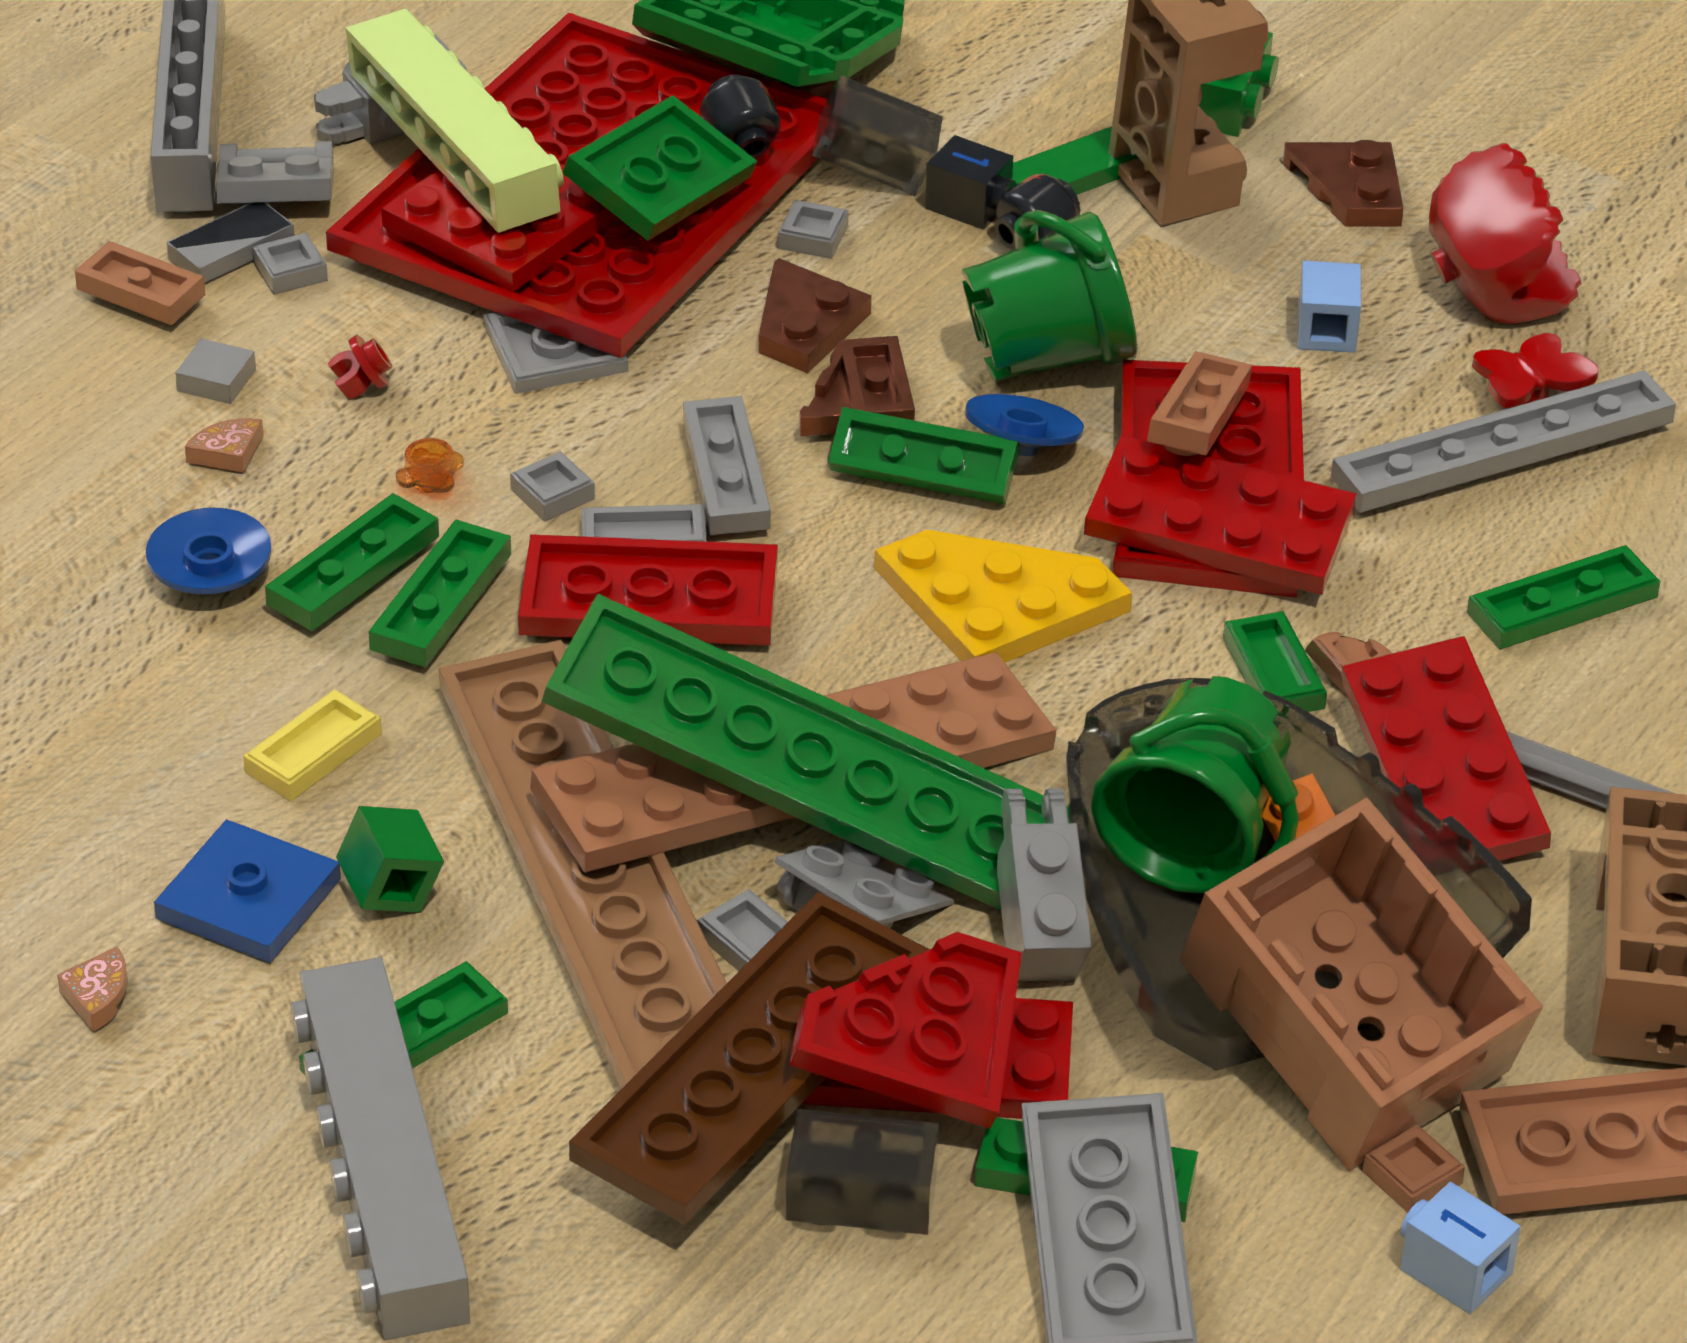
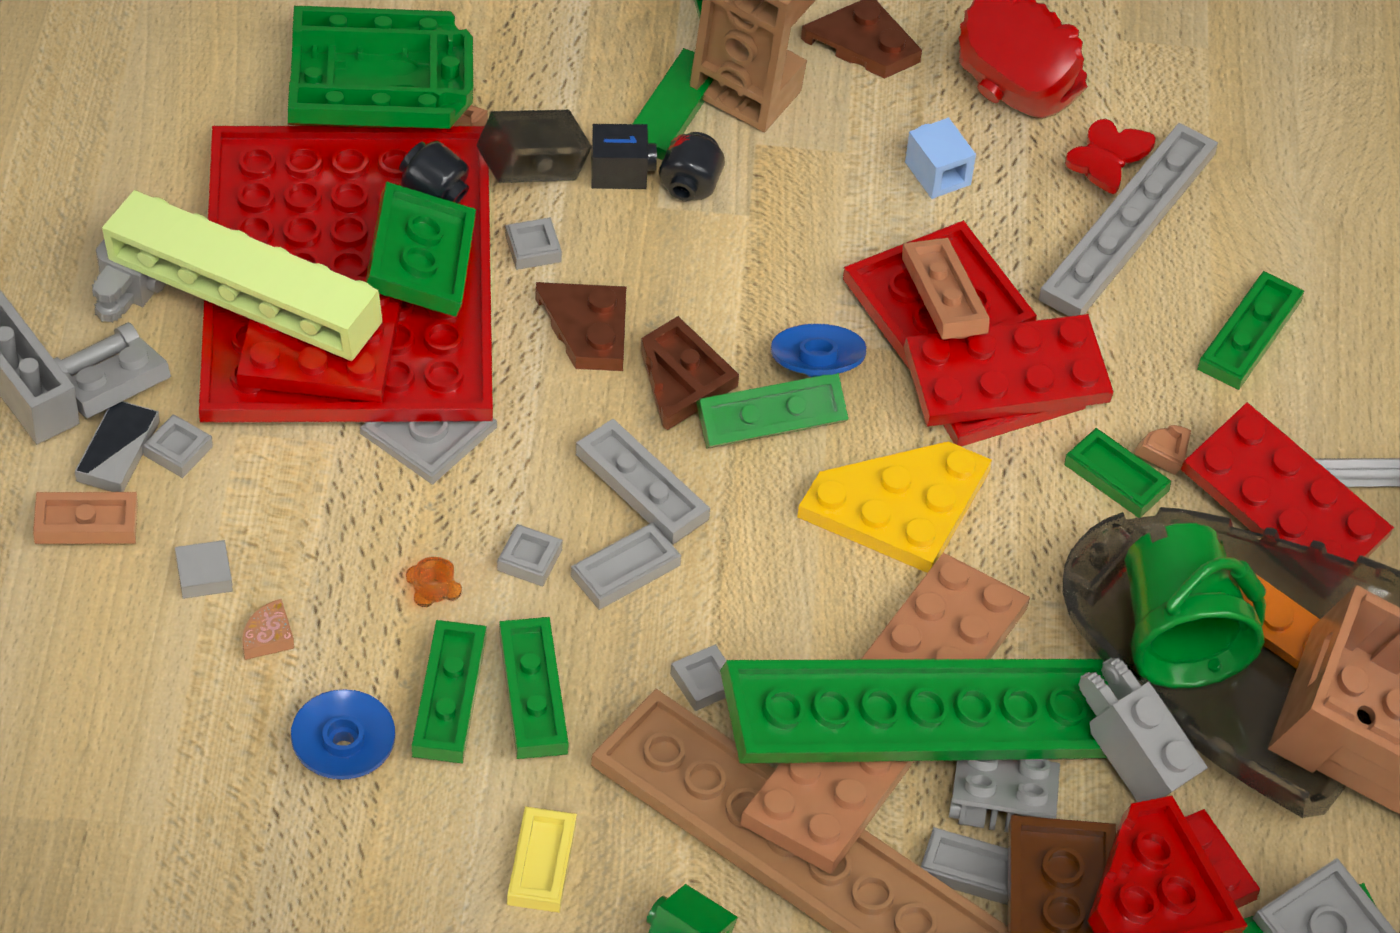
camera: 35 degrees left, 10 degrees up
(360, 366) = (317, 510): red plate -> none
(694, 586) = (673, 613): red plate -> none
(1051, 299) = (781, 242): green piece -> none

